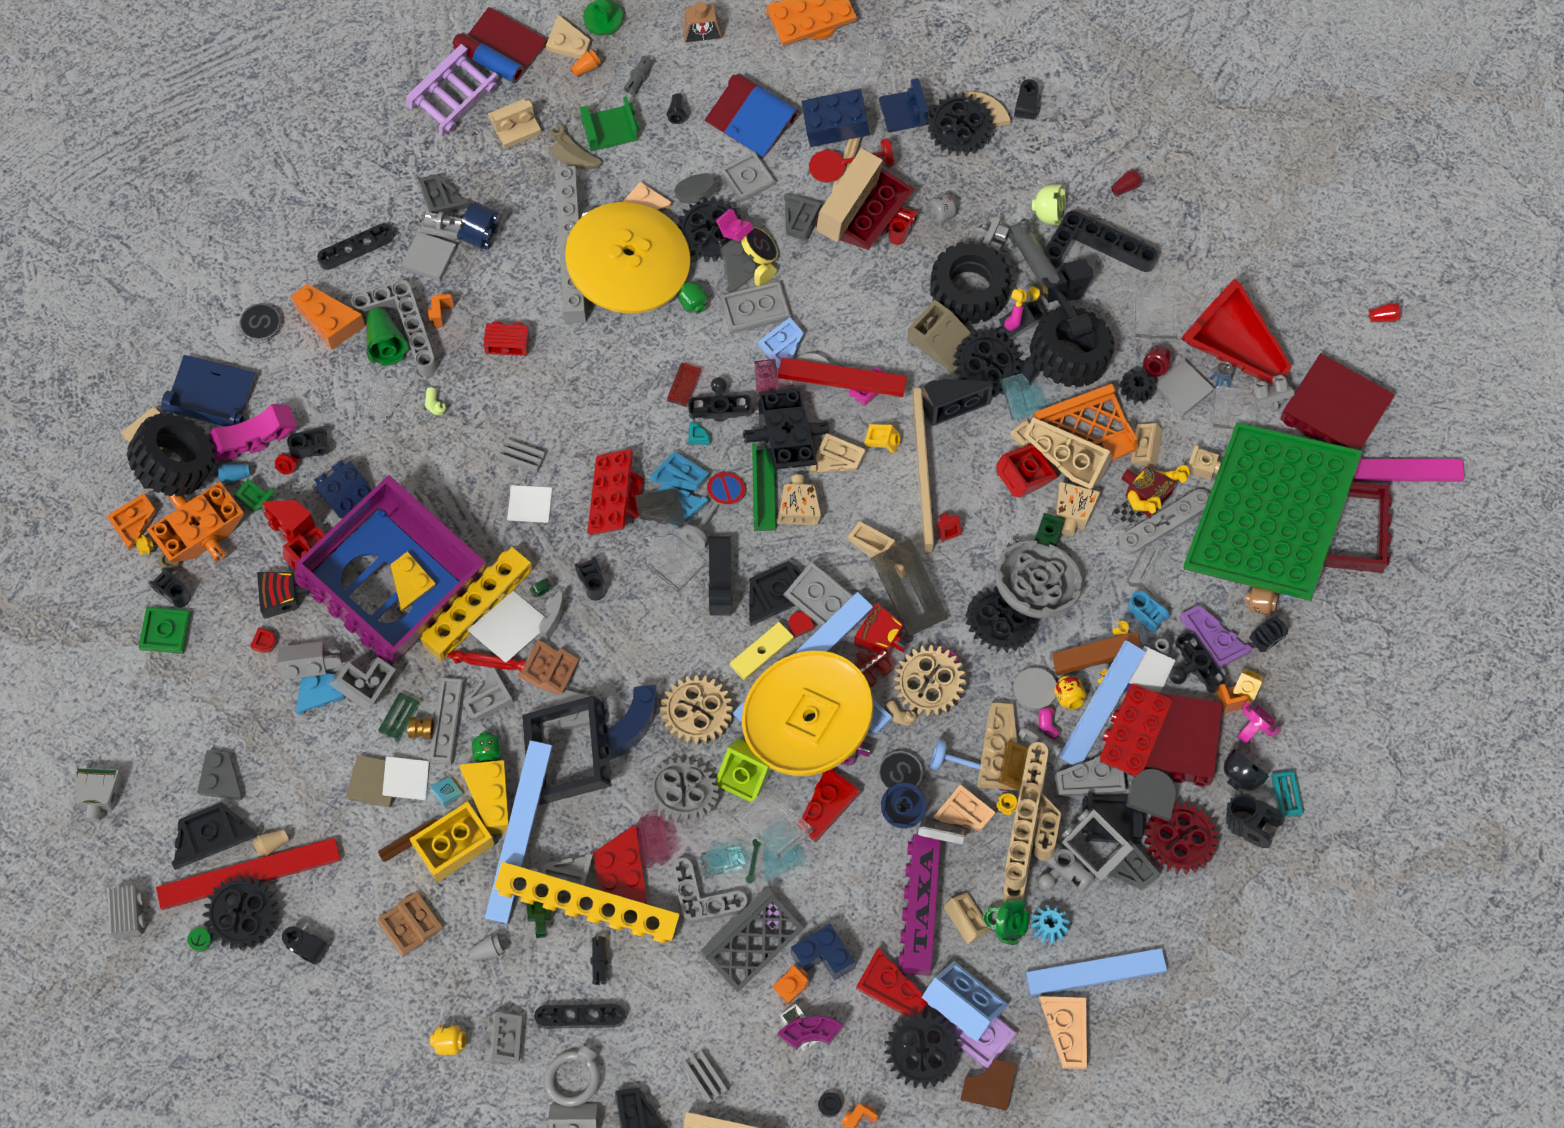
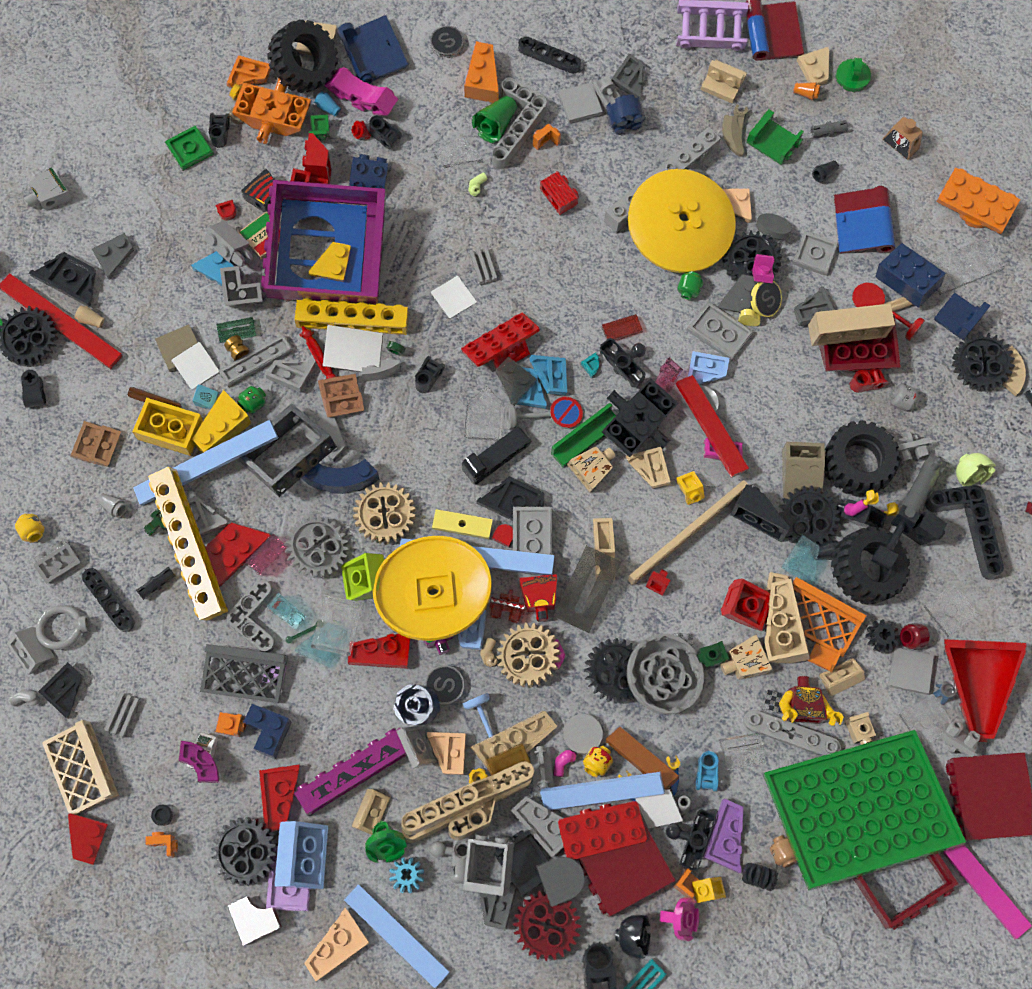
camera: 50 degrees right, 5 degrees up
(318, 625) = (256, 234): none -> tile

